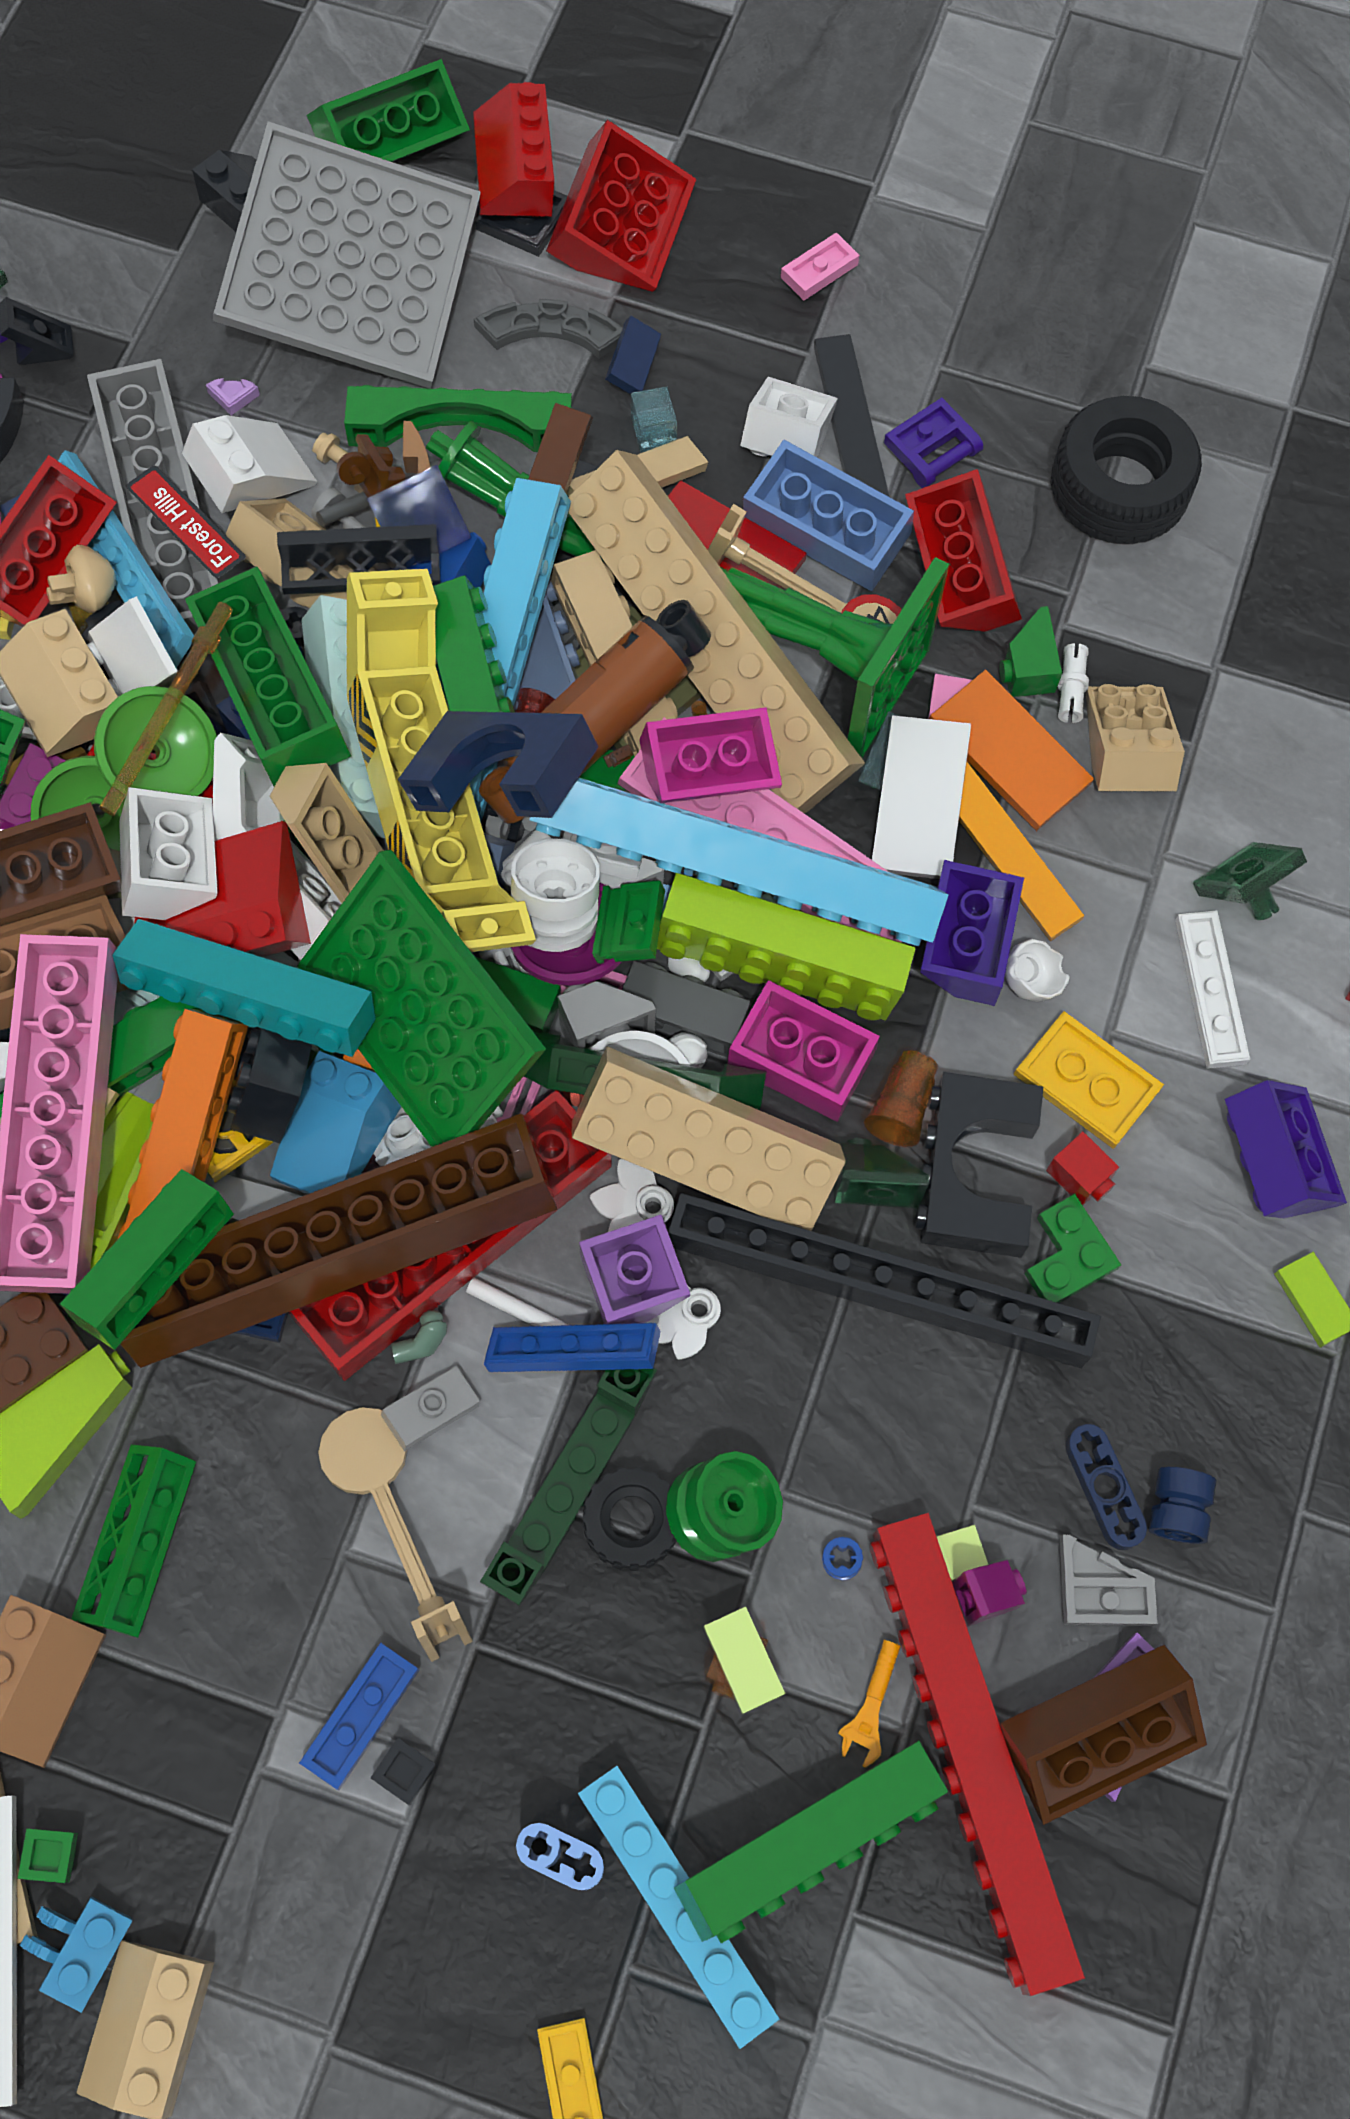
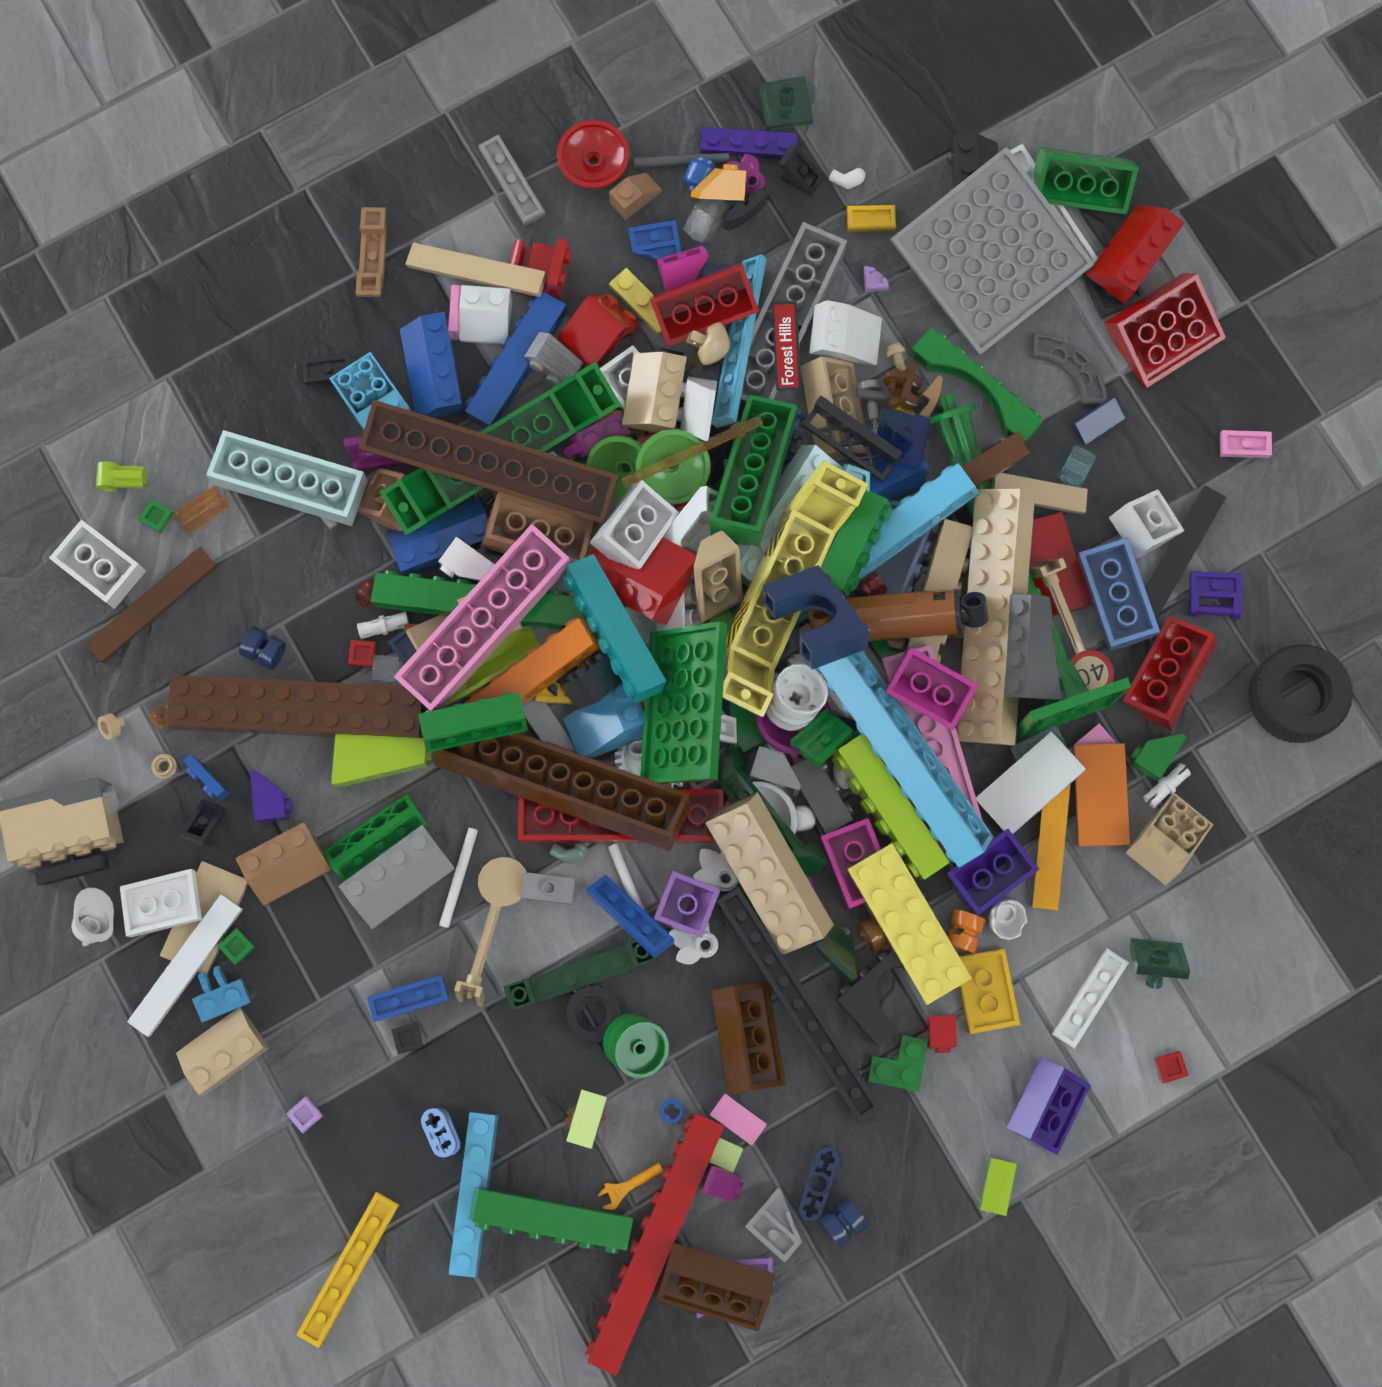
camera: 45 degrees right, 10 degrees up
(105, 308) = (849, 179): none -> white arm
(169, 330) = (871, 218): none -> yellow tile
(207, 1564) = (396, 877): none -> light grey slope
(296, 1497) = (458, 877): none -> white bar
(343, 2011) = (304, 1114): none -> lavender tile
(793, 627) = (1031, 650): none -> dark grey wedge
(855, 1378) = (748, 1037): none -> reddish brown slope
(931, 1064) = (909, 924): none -> light yellow plate
(934, 1492) = (738, 1119): none -> bright pink tile
(998, 1023) = (964, 931): none -> orange wheel

